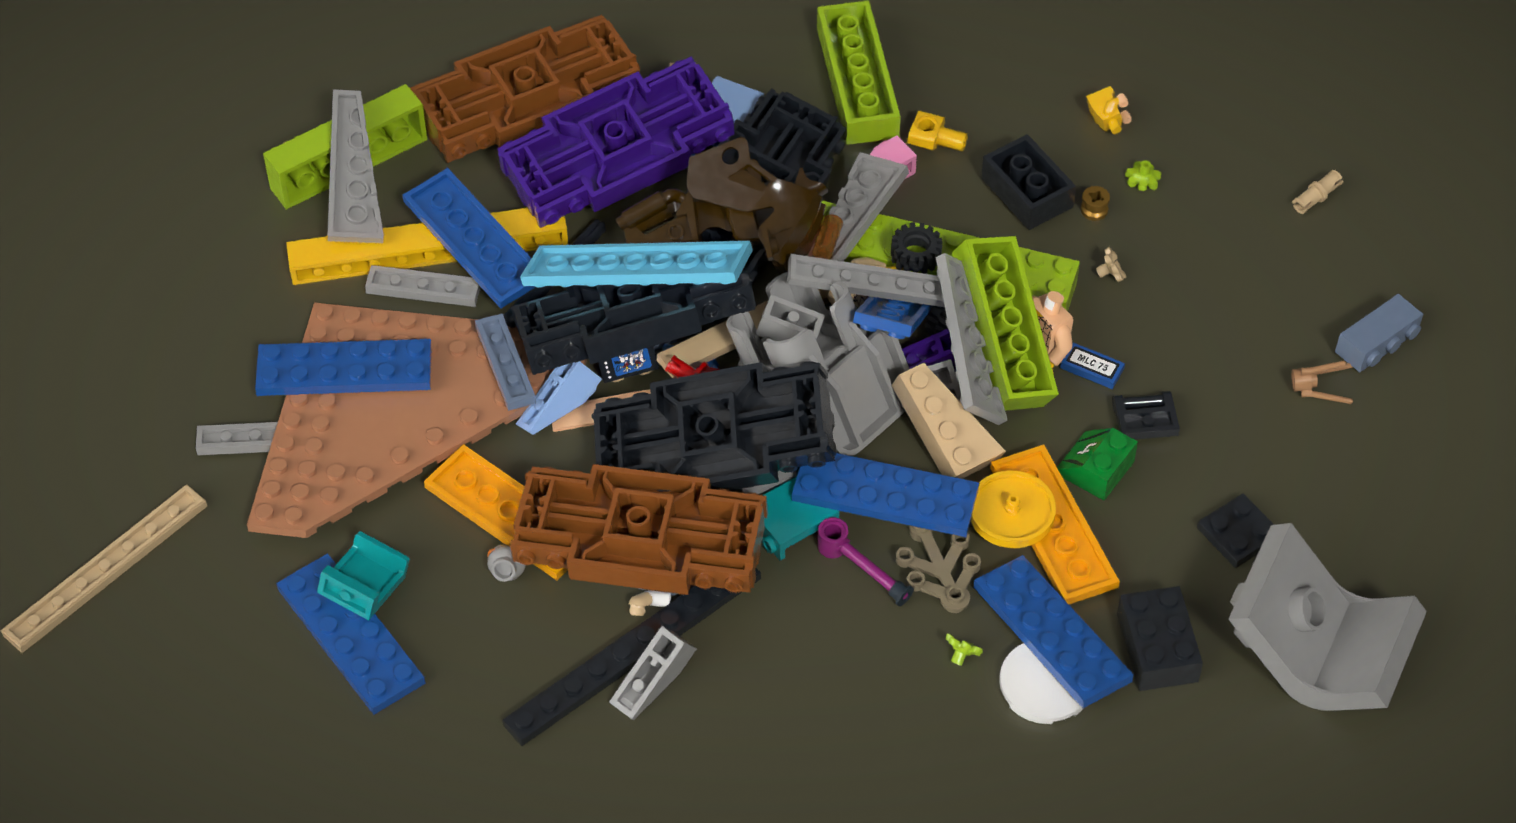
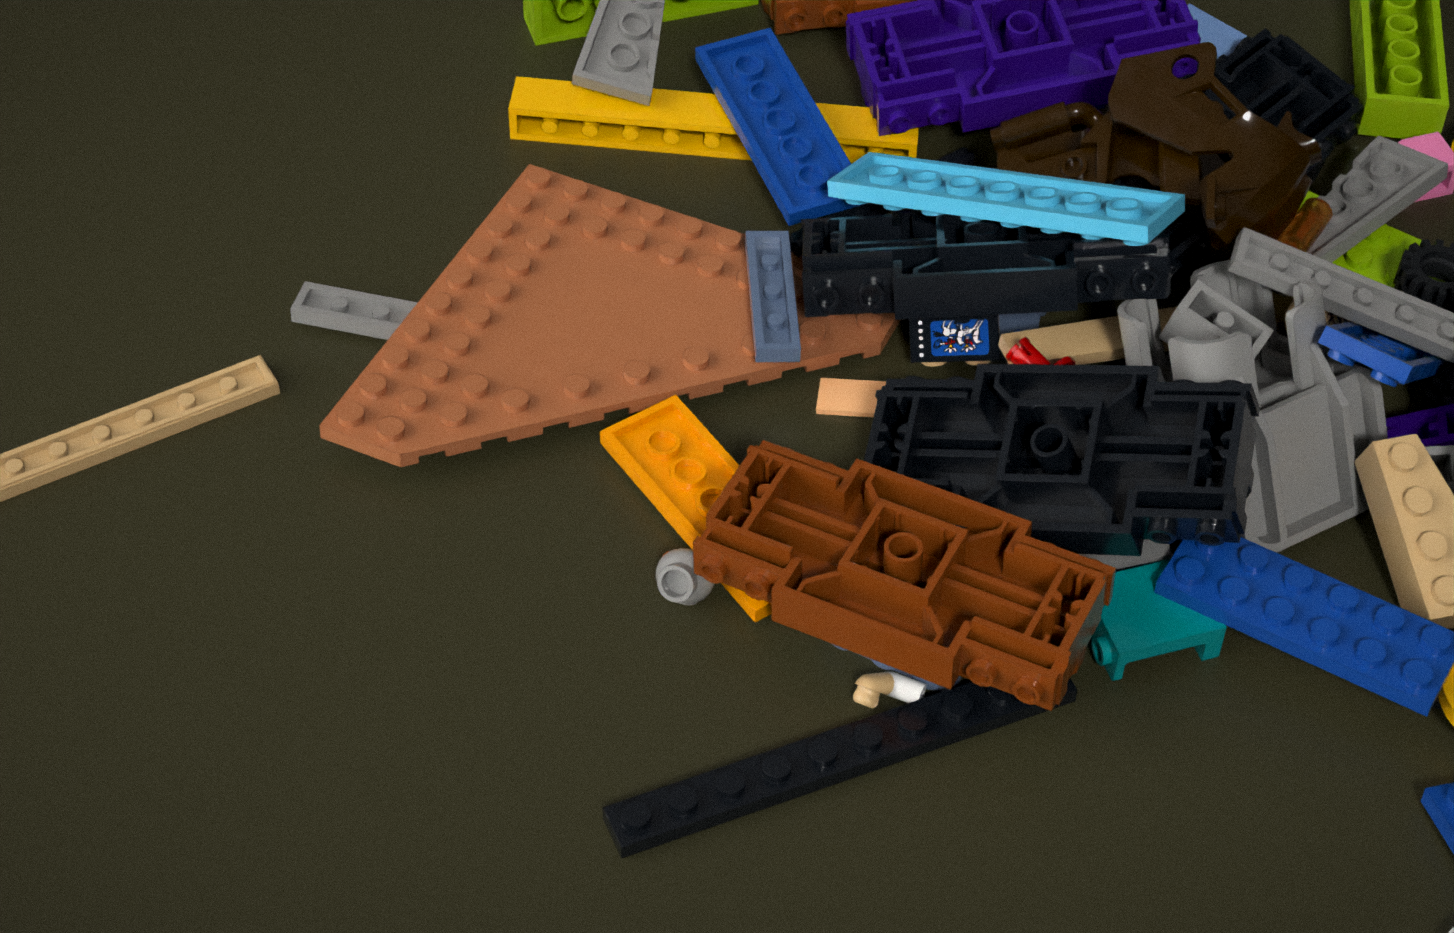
camera: 15 degrees right, 5 degrees down
(343, 367) = (538, 250): blue plate -> none
(357, 646) = (418, 623): blue plate -> none
(364, 576) = (463, 540): teal panel -> none
(422, 286) = (689, 177): light grey plate -> none
(560, 394) = (847, 357): light blue slope -> none
(652, 672) = (862, 796): light grey slope -> none
(837, 547) = (1207, 675): magenta piece -> none
(940, 569) = (1371, 757): dark tan plant -> none
(962, 649) = (1382, 894): lime plant -> none

